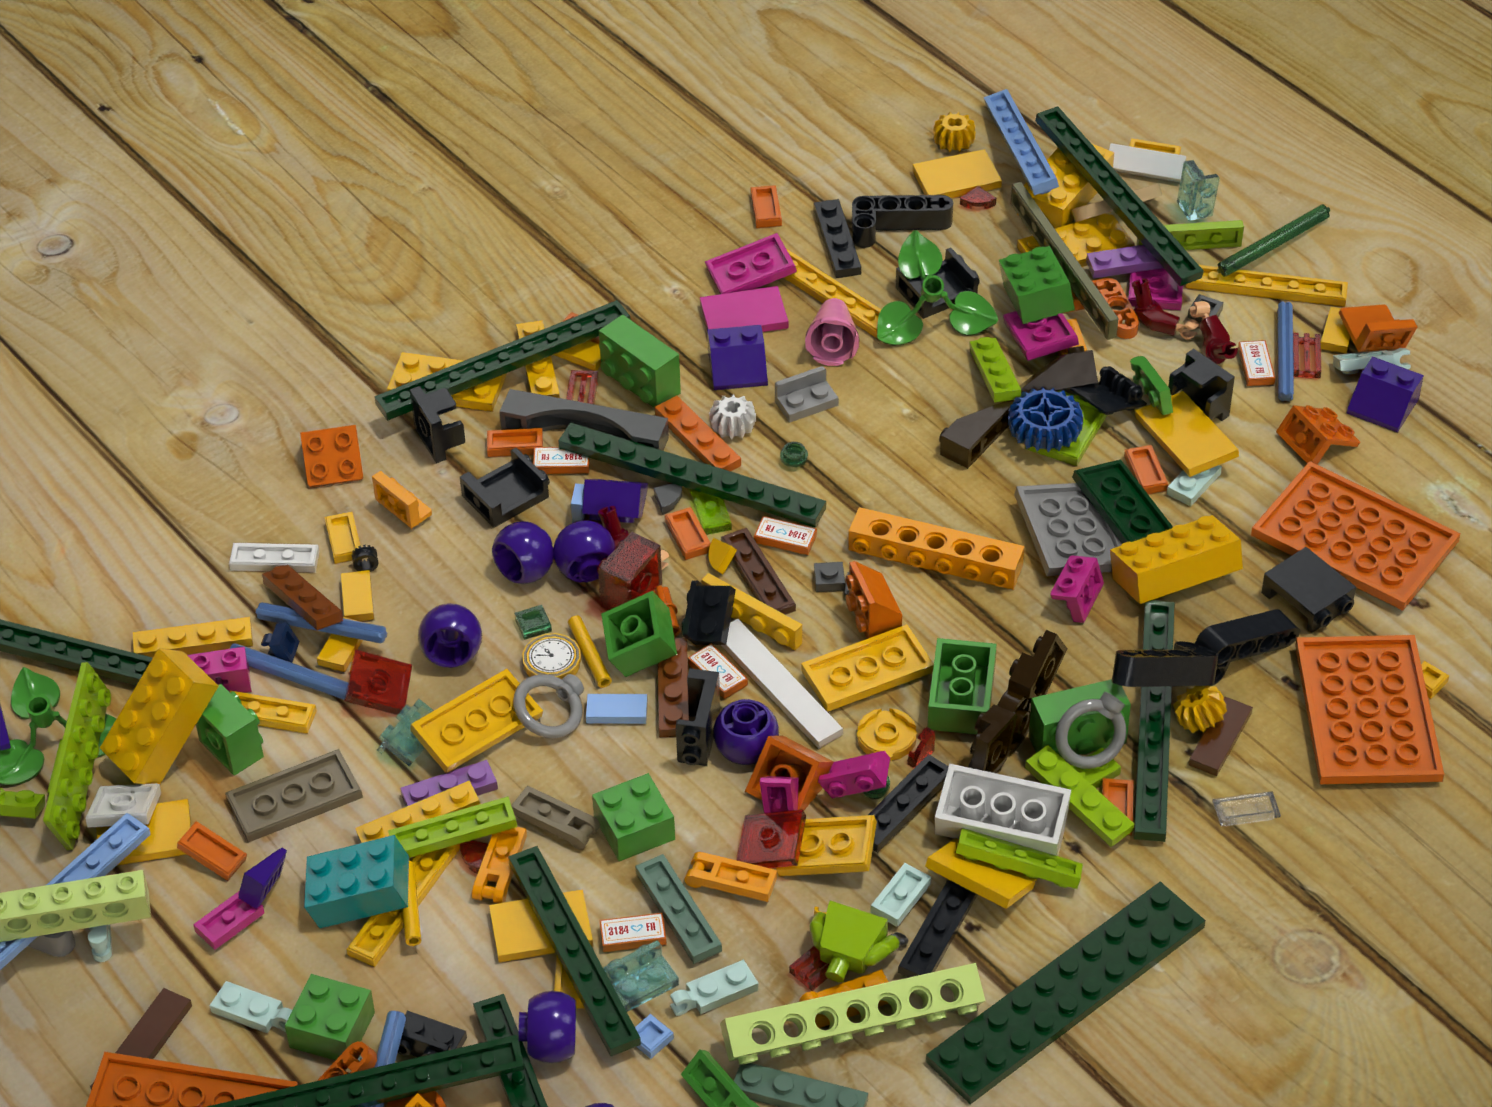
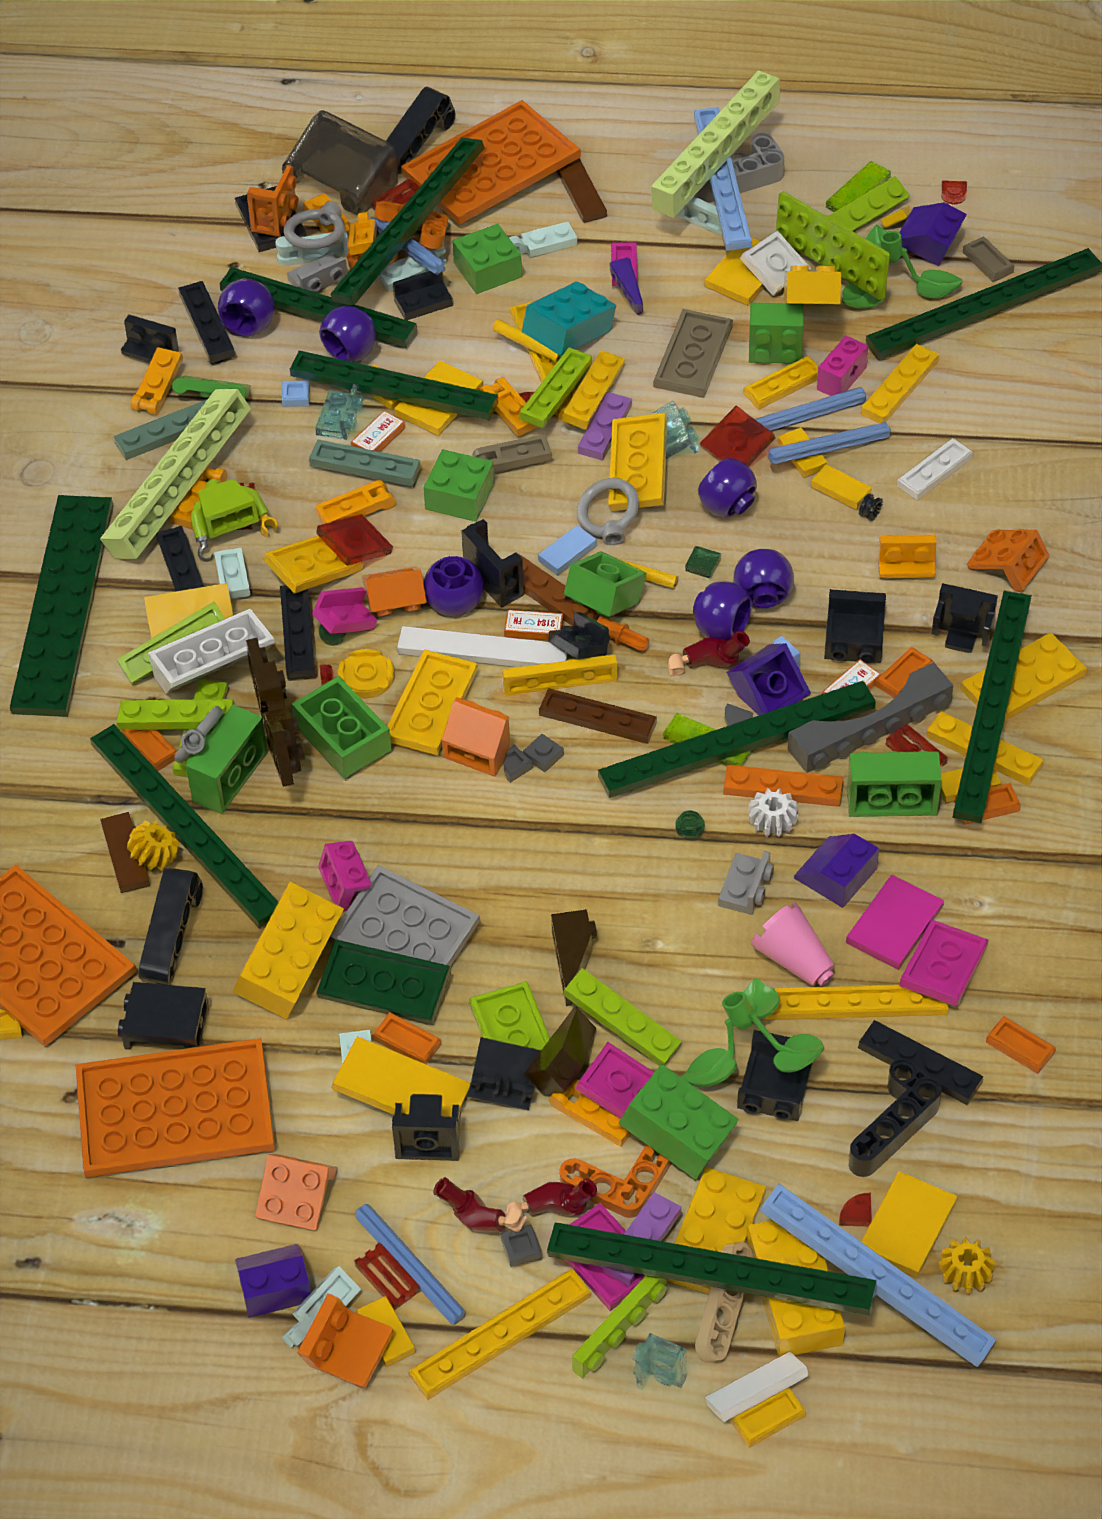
camera: 135 degrees right, 5 degrees up
(211, 850) = (689, 285): orange tile -> none
(282, 642) = (834, 415): dark blue tile -> none
(302, 597) = (863, 443): dark orange plate -> none
(342, 536) = (912, 516): yellow tile -> none
(551, 655) = (655, 546): tile -> none
(629, 571) = (667, 617): clear red brick -> none
(688, 533) = (689, 704): orange tile -> none
(715, 989) = (286, 442): light aqua plate -> none
(720, 555) = (639, 702): yellow tile -> none
(779, 793) = (375, 552): dark pink slope -> none
(785, 535) = (612, 754): tile -> none
(936, 548) = (487, 827): light orange brick -> none
(1045, 419) = (523, 984): blue gear -> none
(1079, 280) = (673, 1165): olive tile -> none
(1152, 384) = (475, 1104): bright green plate -> none
(1182, 666) = (192, 814): black beam -> none
(1246, 808) = (54, 809): clear tile -> none
(1256, 363) = (422, 1229): tile -> none
(1273, 240) = (539, 1386): clear green axle -> none

